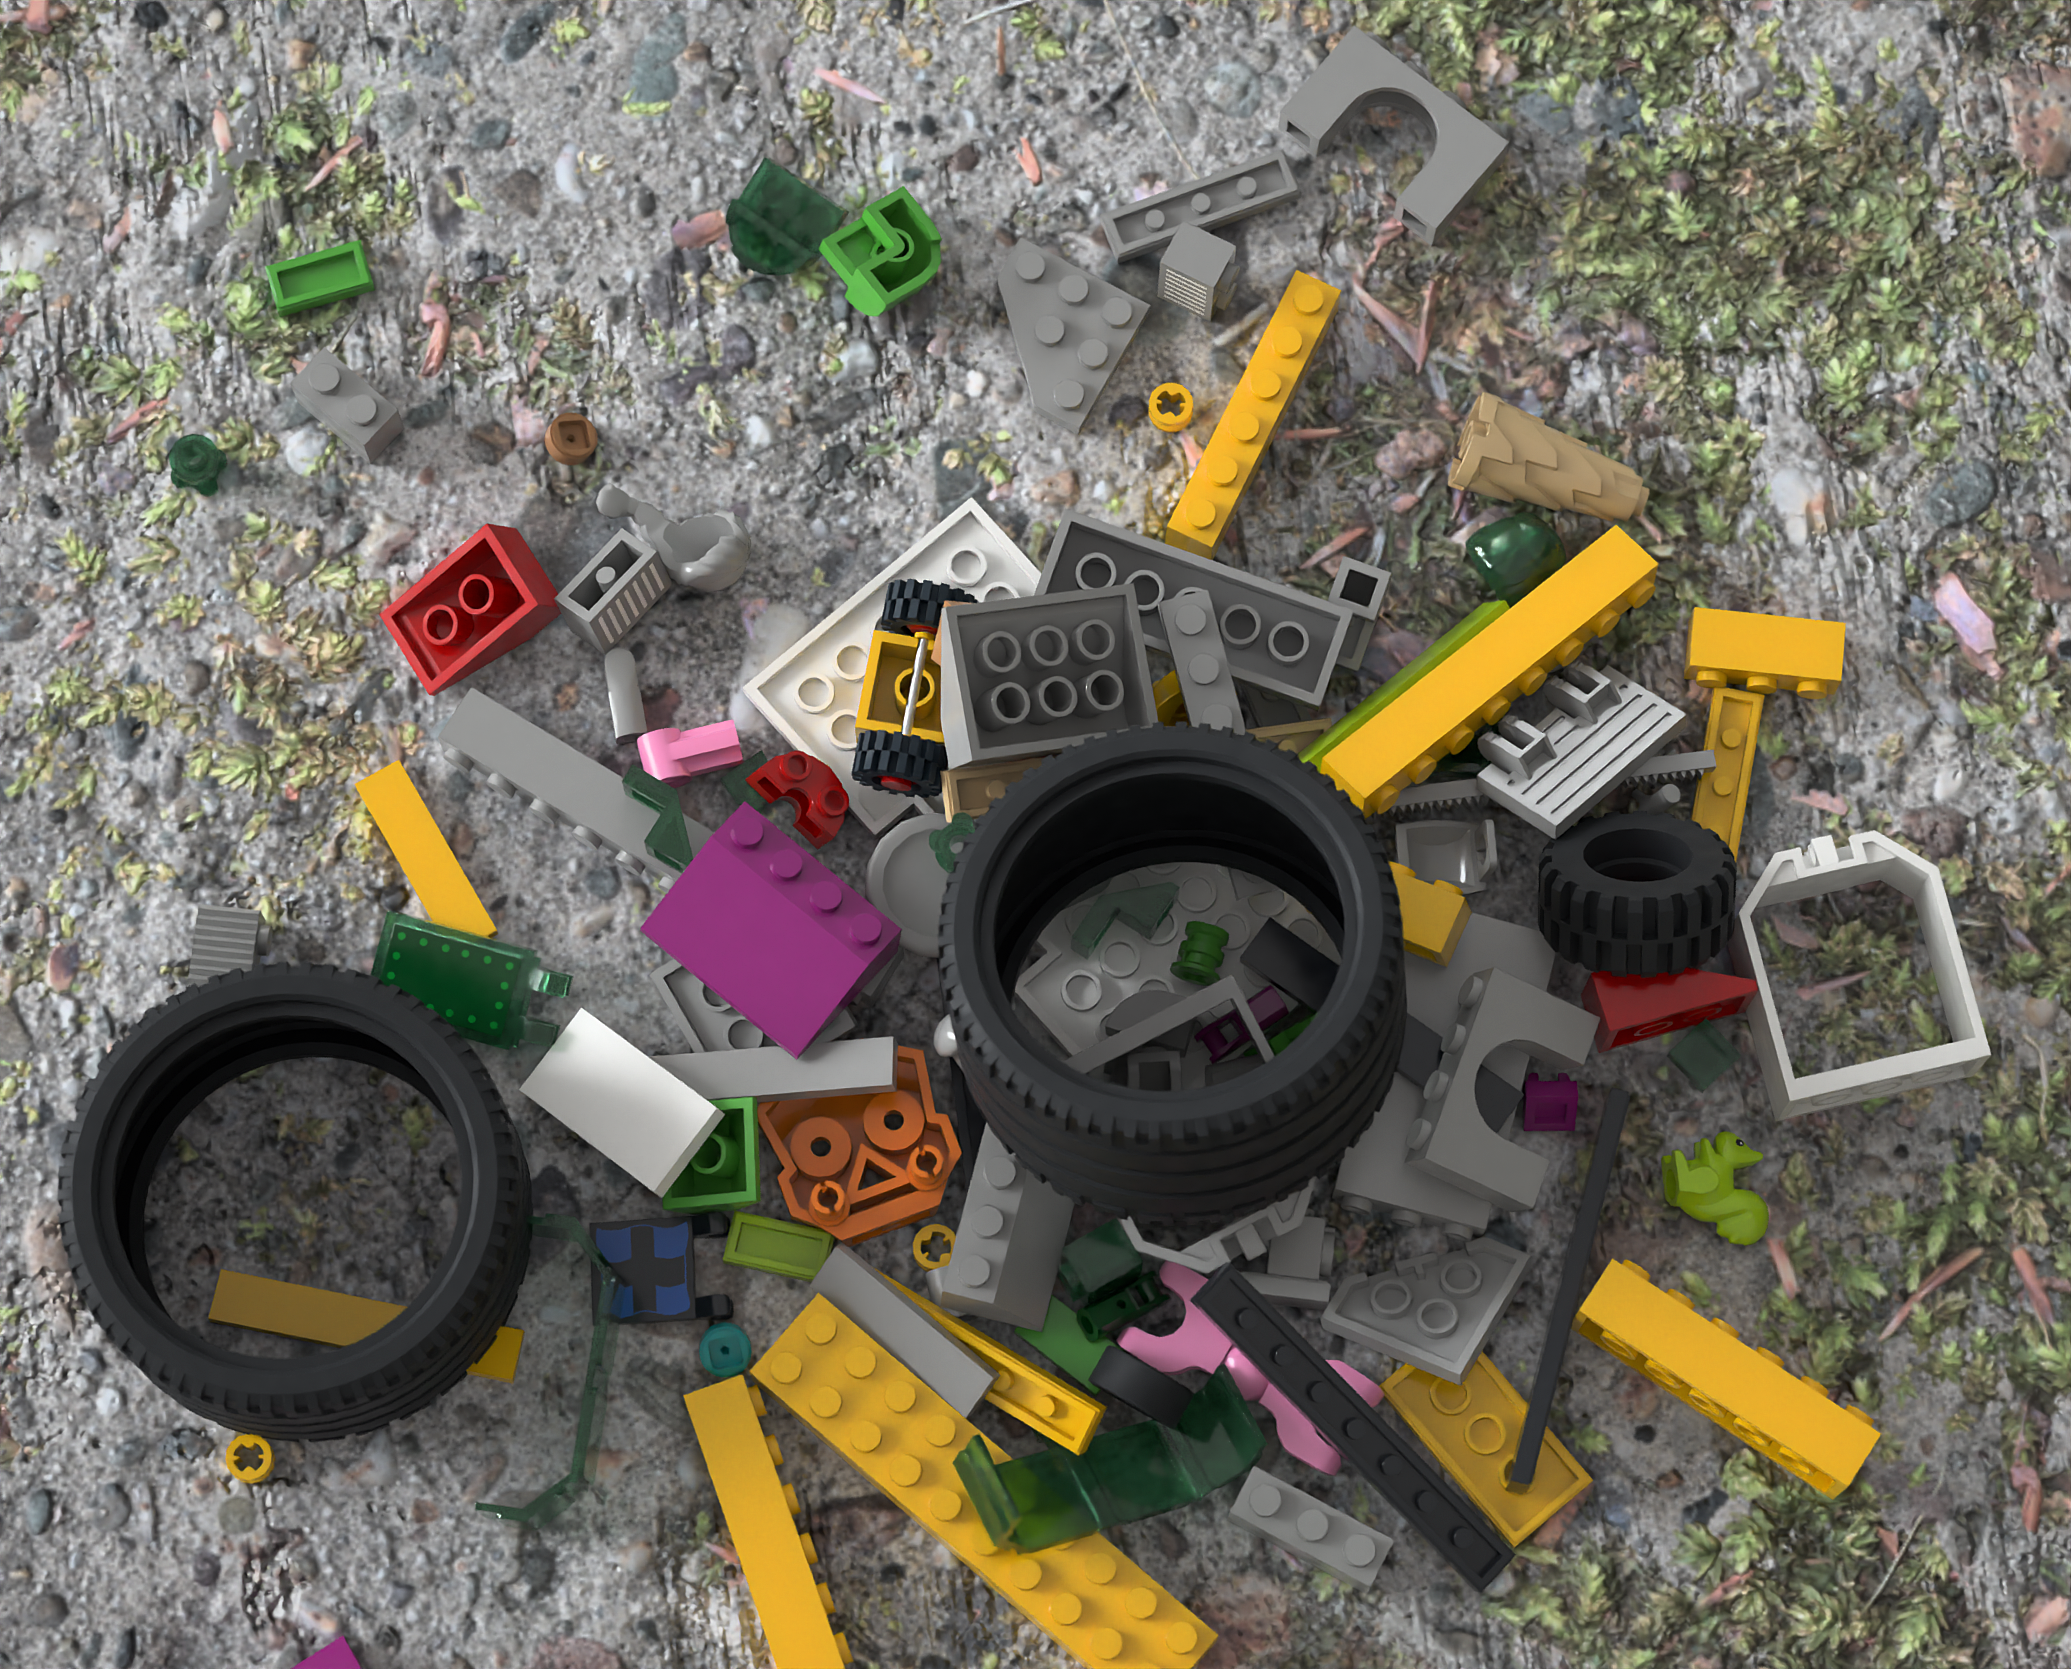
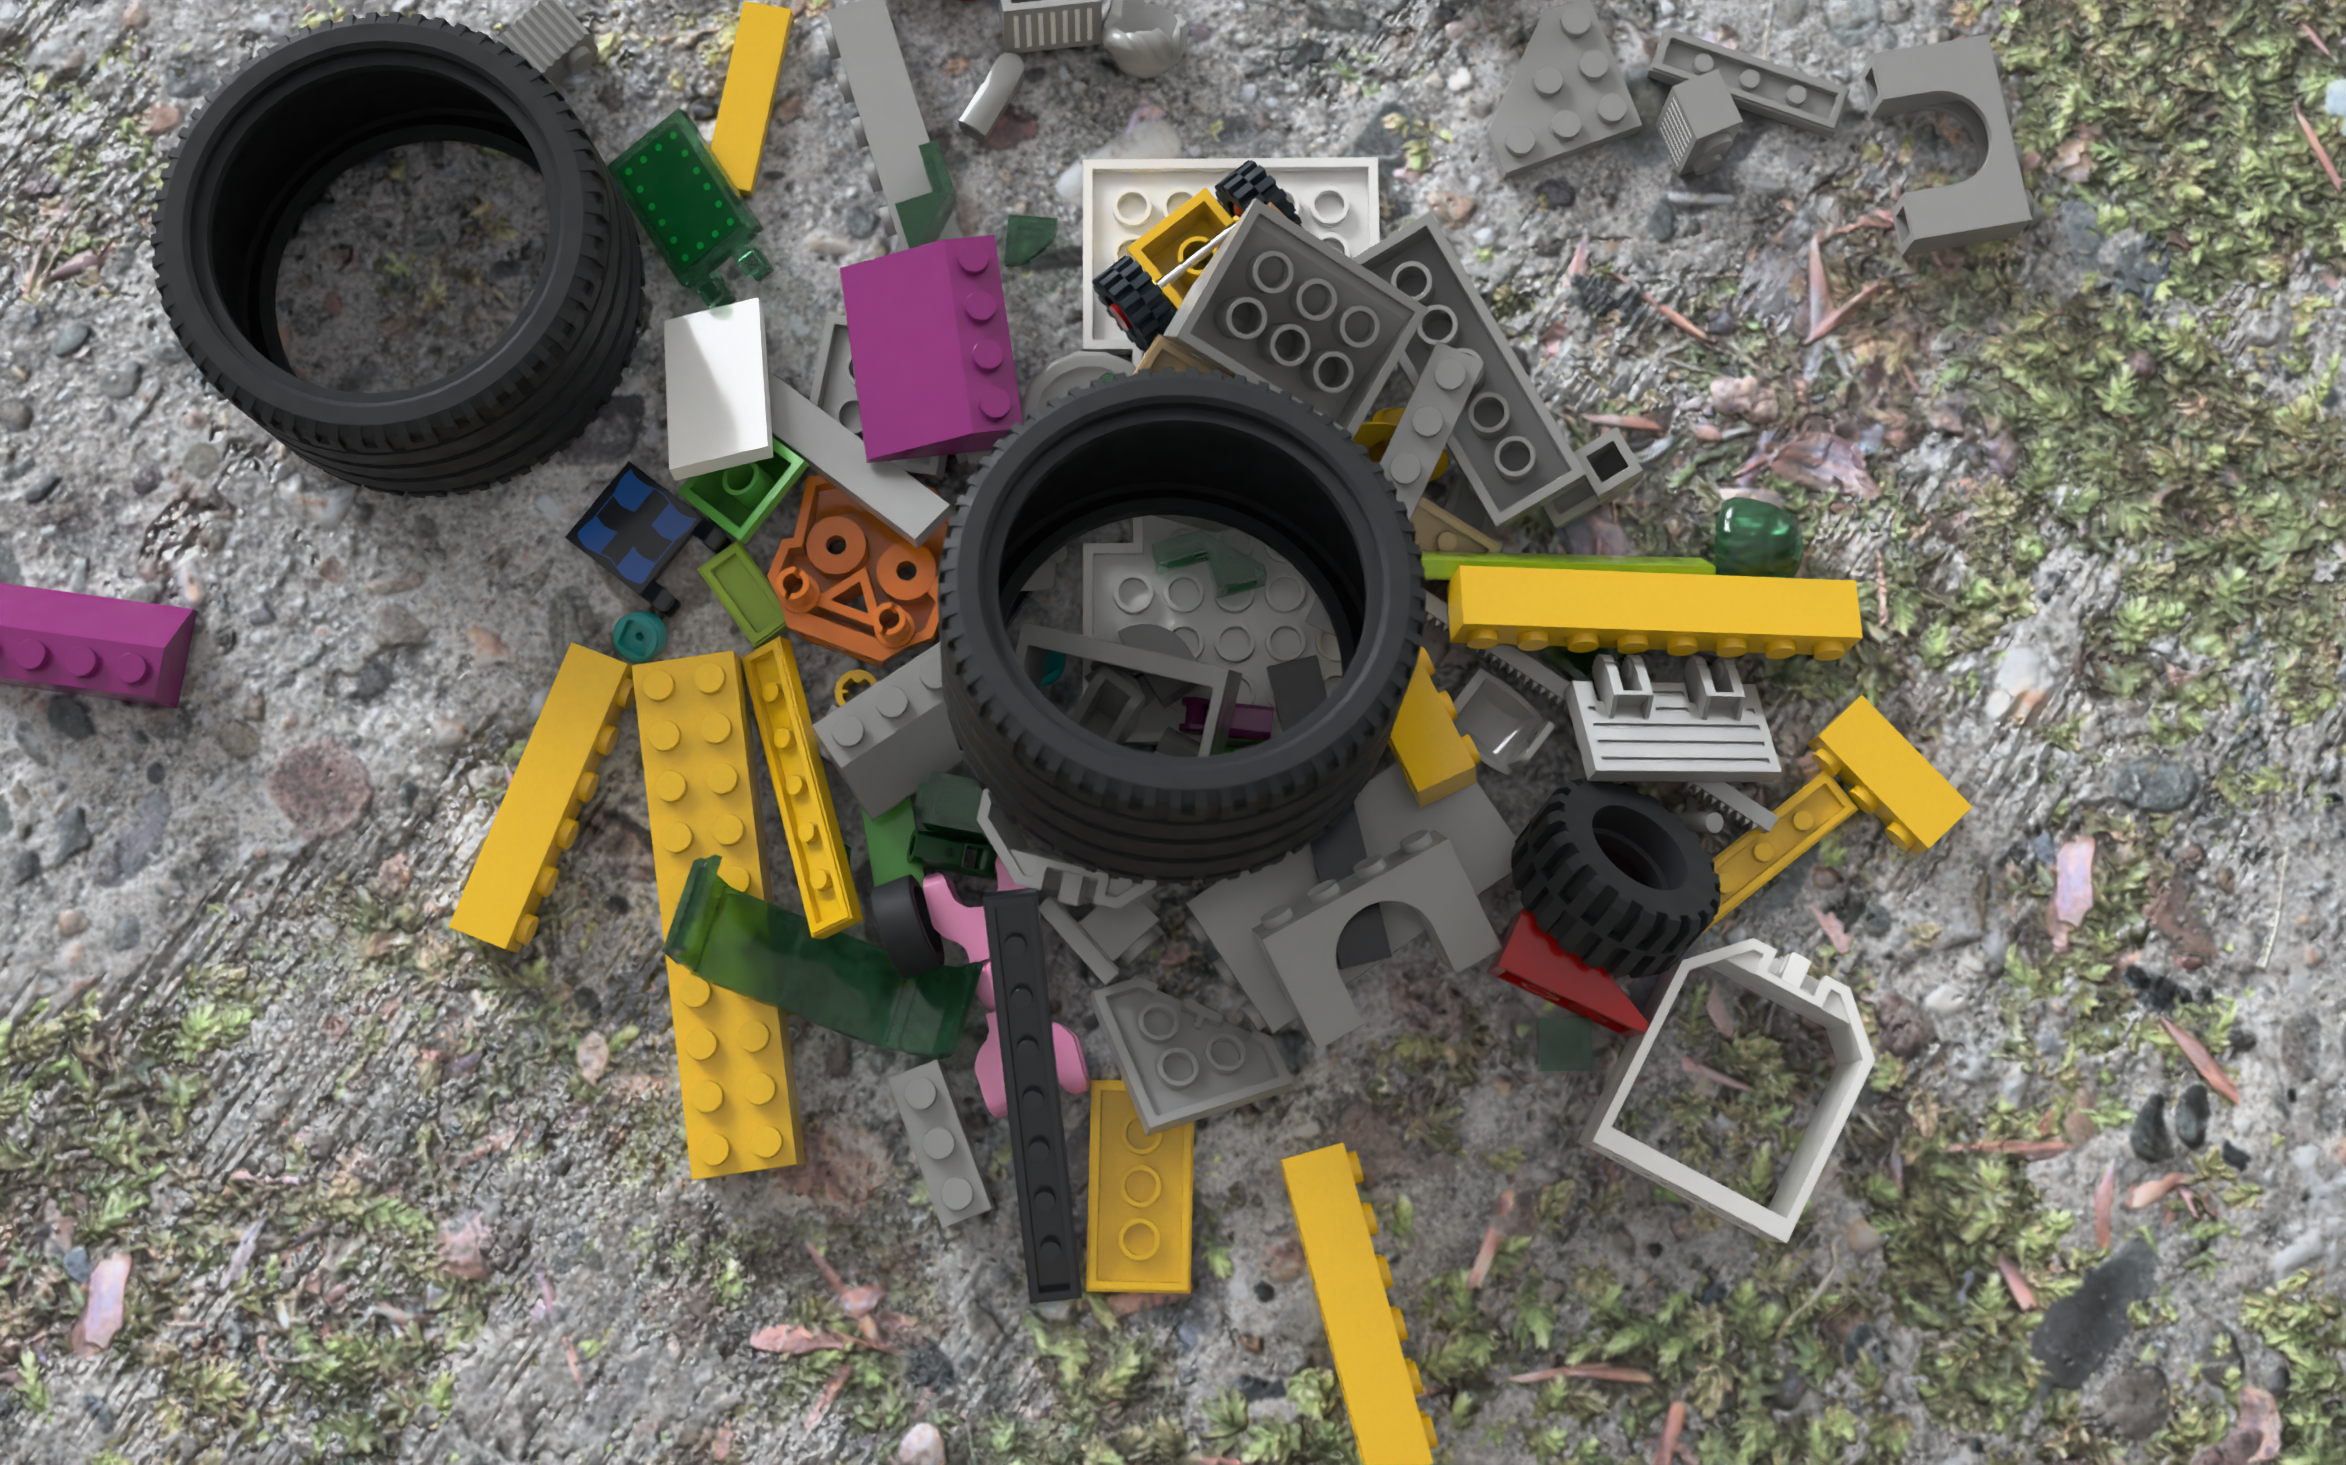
camera: 45 degrees right, 5 degrees up
(251, 1442) = (224, 425): yellow bush -> none
(332, 1318) = (387, 369): yellow tile -> none
(594, 1400) = (520, 574): clear green windscreen -> none
(681, 755) = (991, 171): bright pink piece -> none
(810, 790) = (1063, 267): red cylinder -> none
(905, 1330) = (771, 733): light grey tile -> none
(1168, 421) = (1578, 222): yellow bush -> none
(1200, 953) = (1242, 639): bright green bush -> none
(1253, 416) = (1646, 270): yellow brick -> none
(1521, 459) = (1827, 470): tan cone -> none
(1550, 1104) = (1411, 980): magenta tile -> none
(1568, 1292) = (1296, 1135): black tile -> none
(1707, 1188) = (1476, 1147): lime animal -> none

